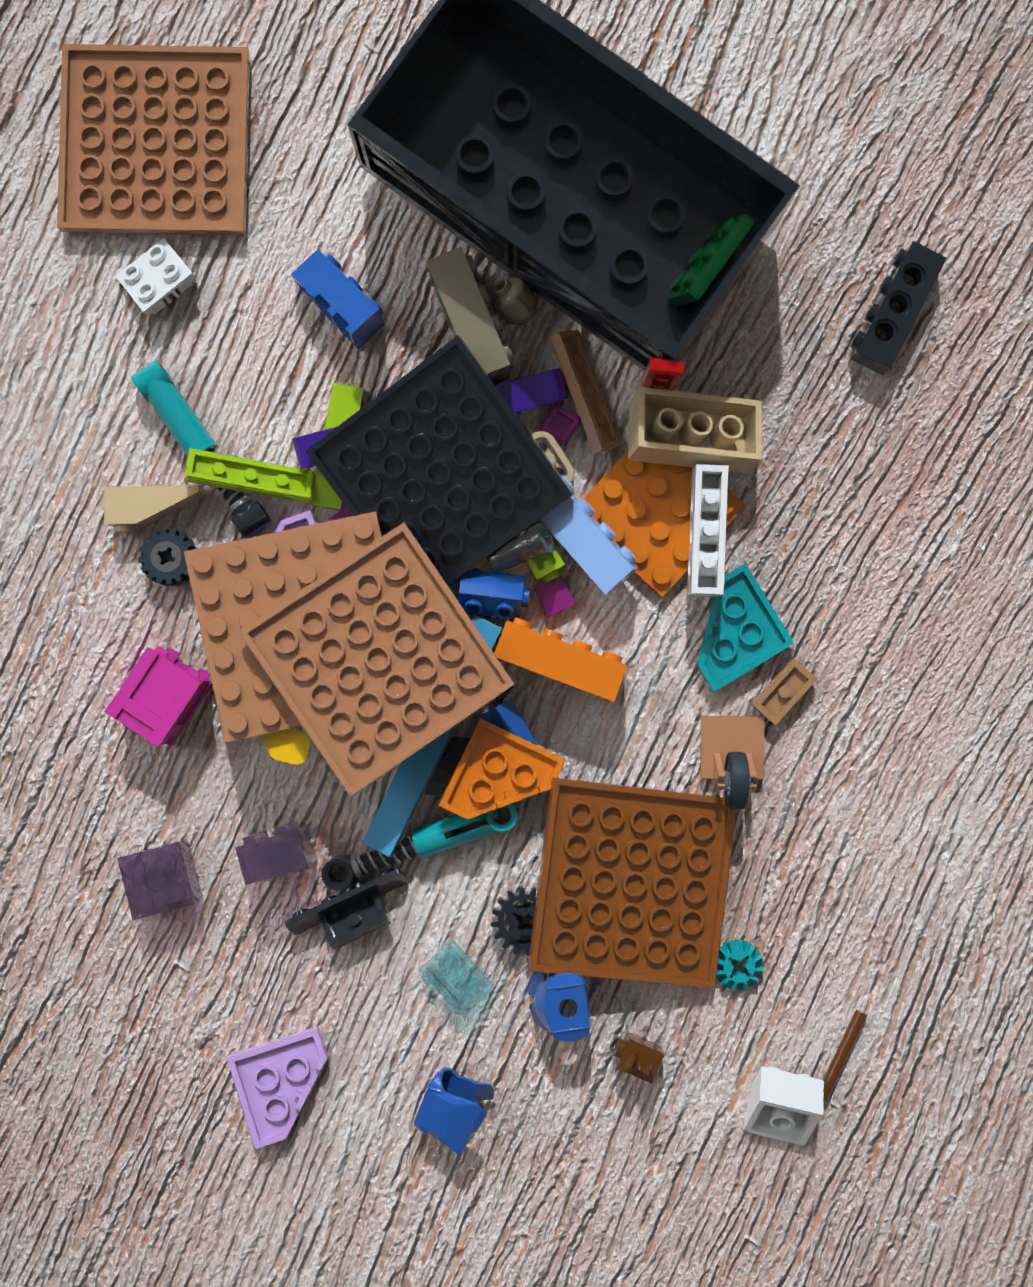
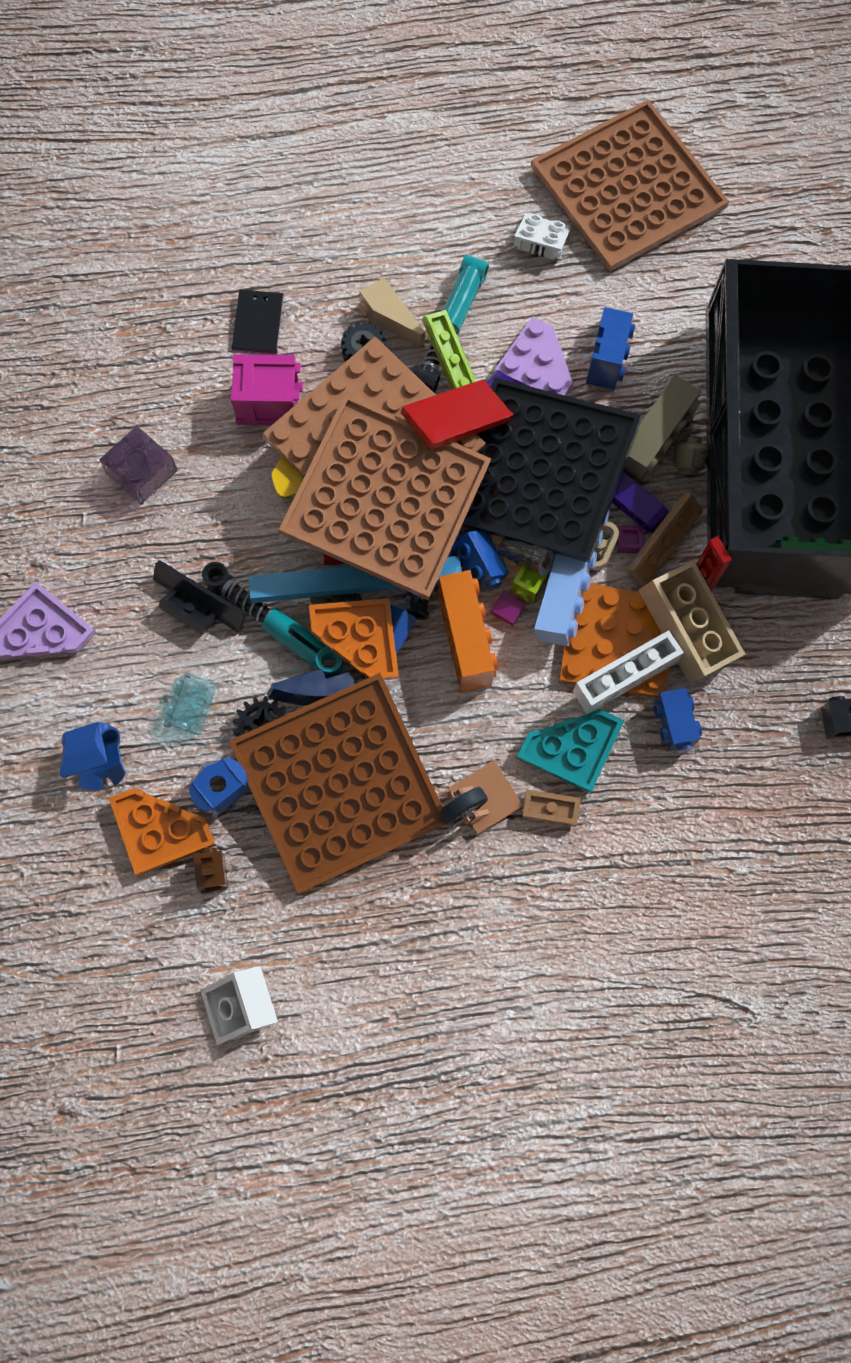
camera: 50 degrees right, 15 degrees down
(65, 650) = (257, 321): none -> black container
(275, 854) = (204, 524): clear purple brick -> none
(306, 387) = (537, 359): none -> lavender plate
(330, 525) = (456, 414): none -> red tile
(523, 848) = (308, 687): none -> dark blue slope
(565, 1084) = (157, 830): none -> orange plate
(738, 950) = (334, 914): teal gear -> none
(787, 514) = (677, 720): none -> blue brick
(842, 1052) = (305, 1028): reddish brown bar -> none

